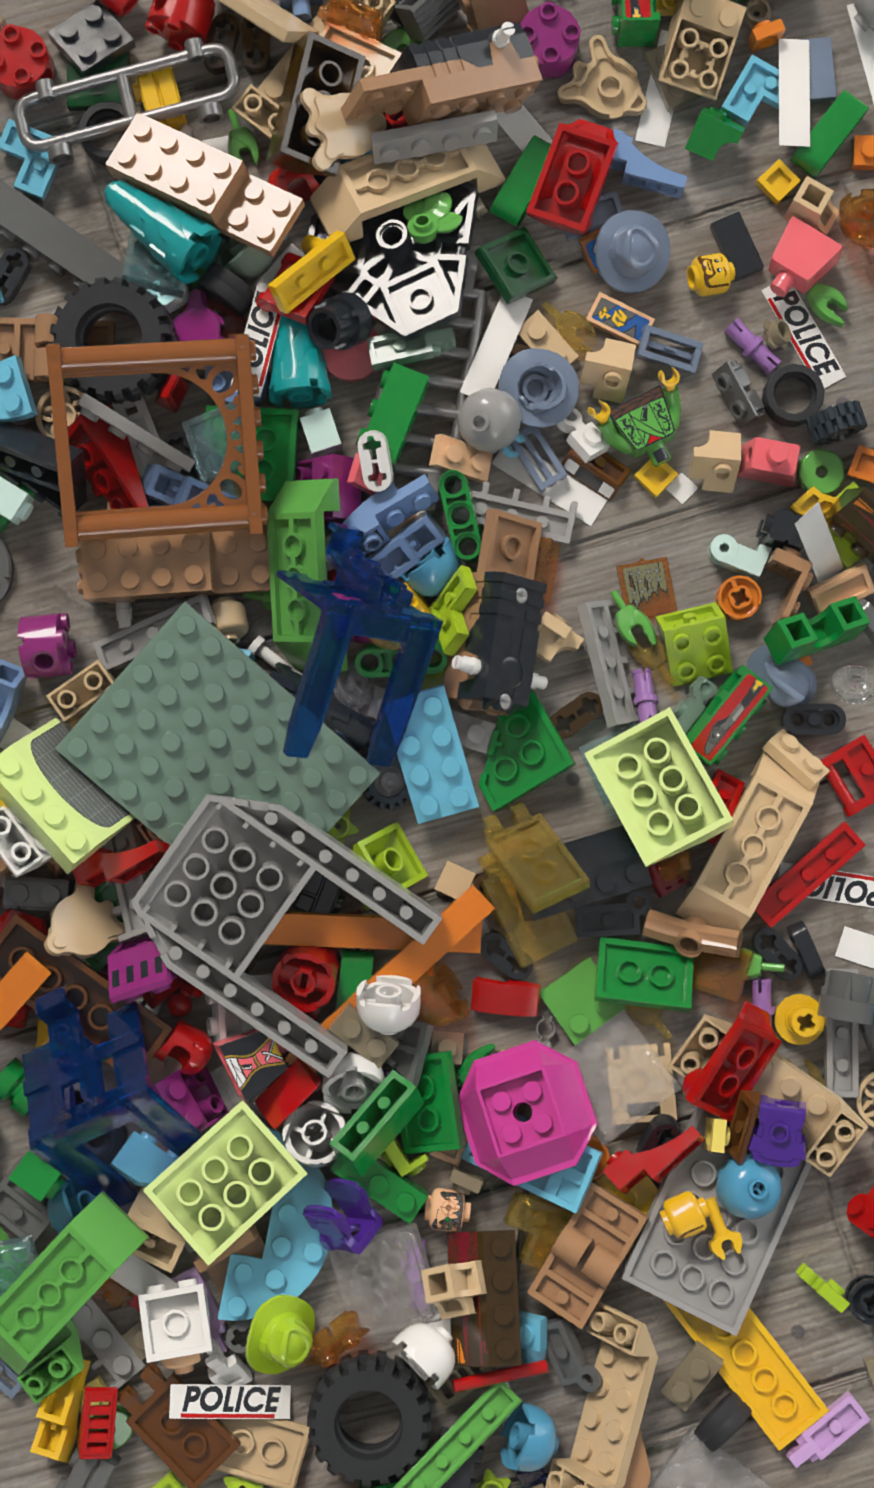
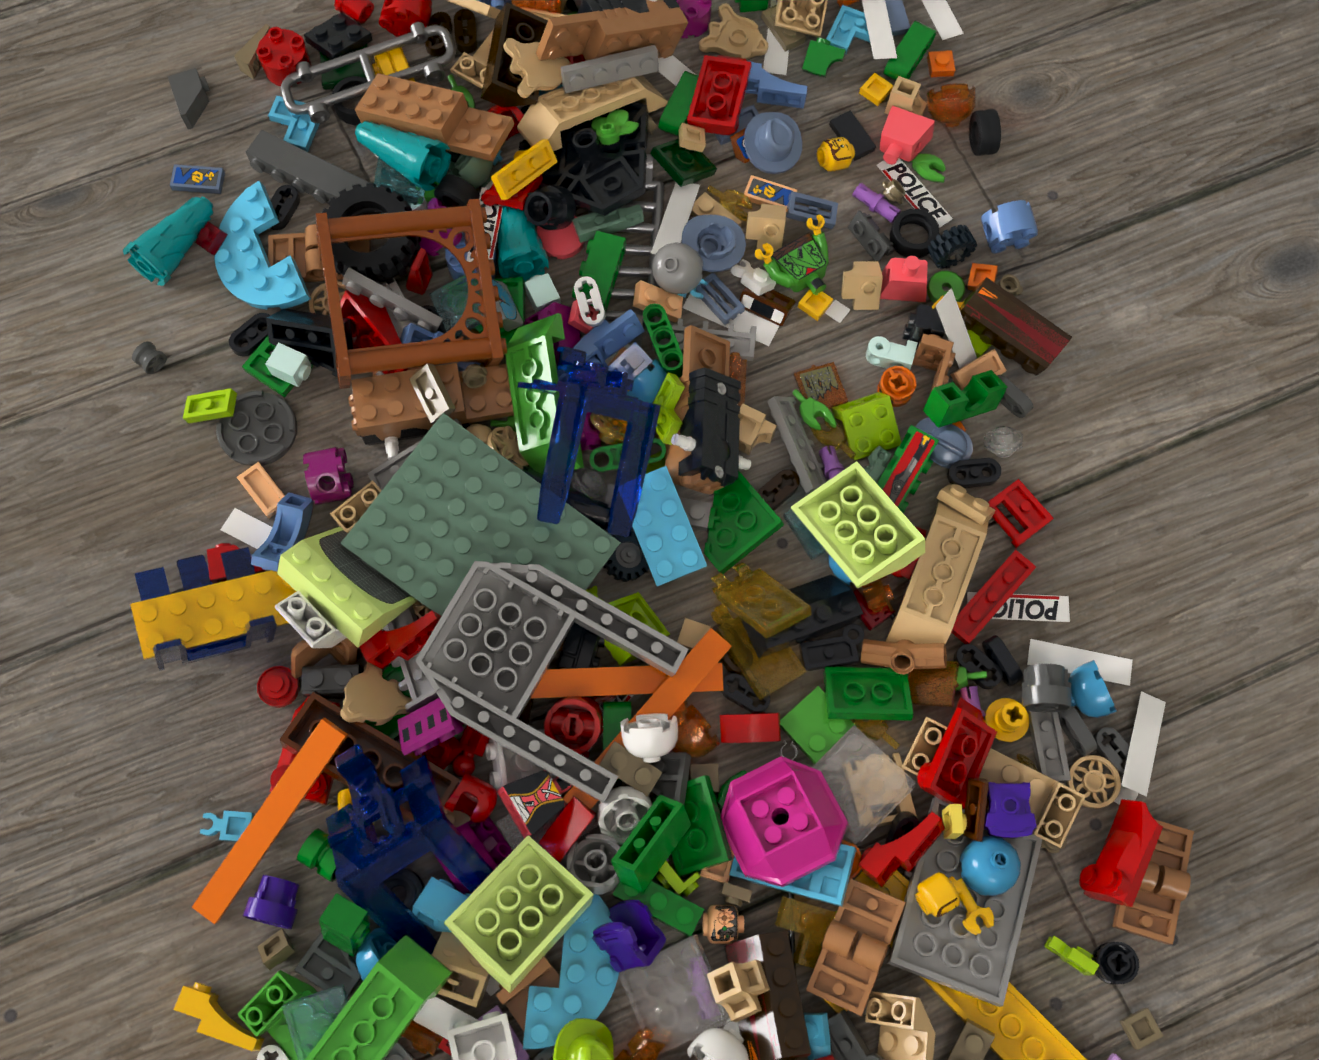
camera: 10 degrees left, 15 degrees down
(174, 570) = (432, 392): none -> dark tan plate
(227, 544) = (474, 376): none -> dark tan plate
(260, 633) = (507, 446): none -> tan wheel
(275, 455) = (507, 307): none -> slope
(530, 235) = (692, 137): none -> tan plate

